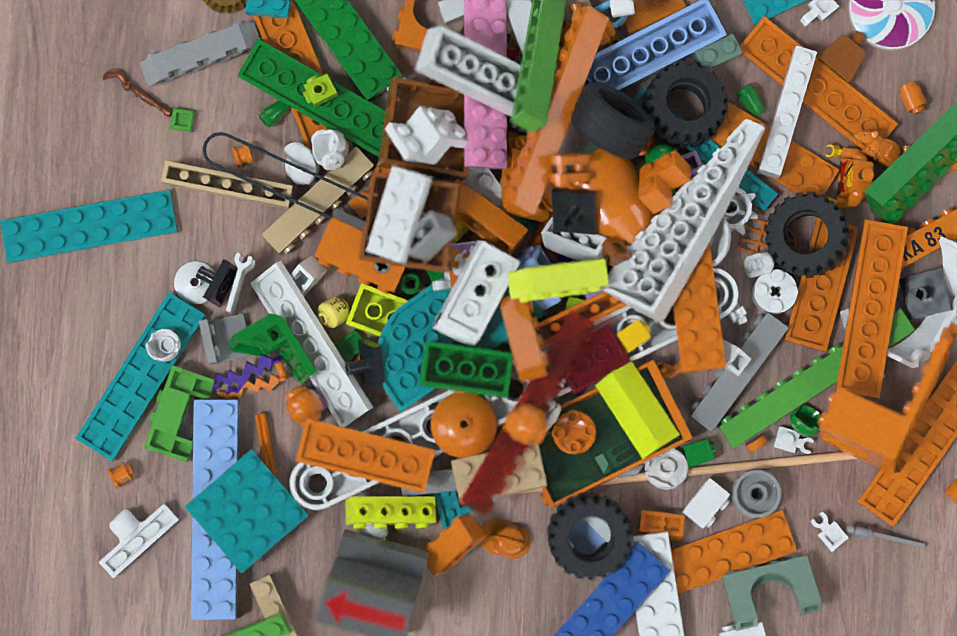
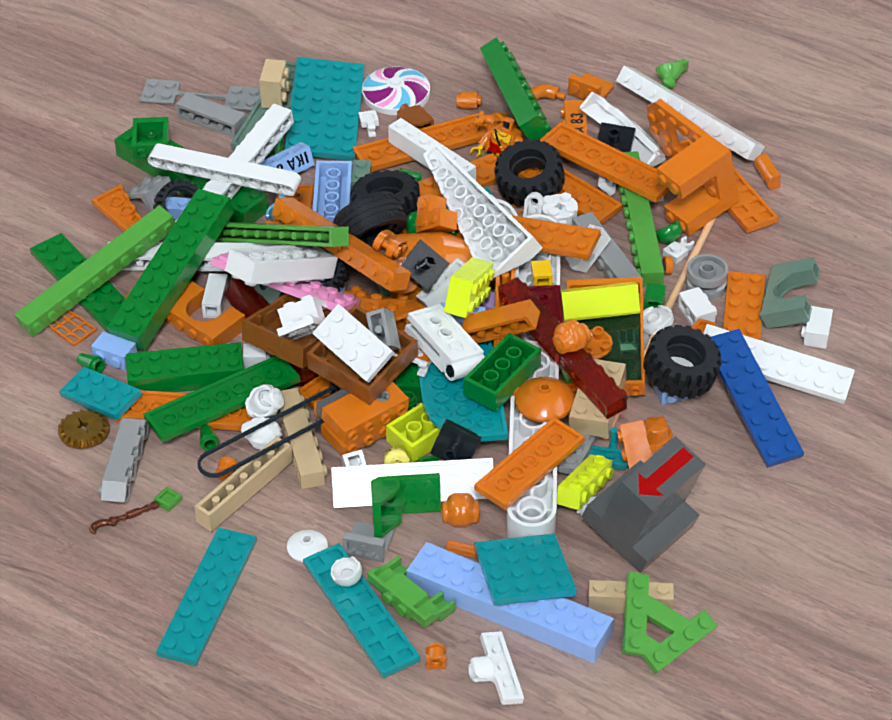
camera: 60 degrees left, 40 degrees down
(219, 282) = (319, 517): black tile -> none
(243, 269) = (330, 505): white flag -> none
(264, 361) = (411, 542): piece -> none
(319, 90) = (214, 386): lime brick -> none
(616, 251) = (466, 254): dark orange tile -> none
(831, 533) = (762, 252): white plate -> none
(866, 532) = (772, 237): light grey sword -> none

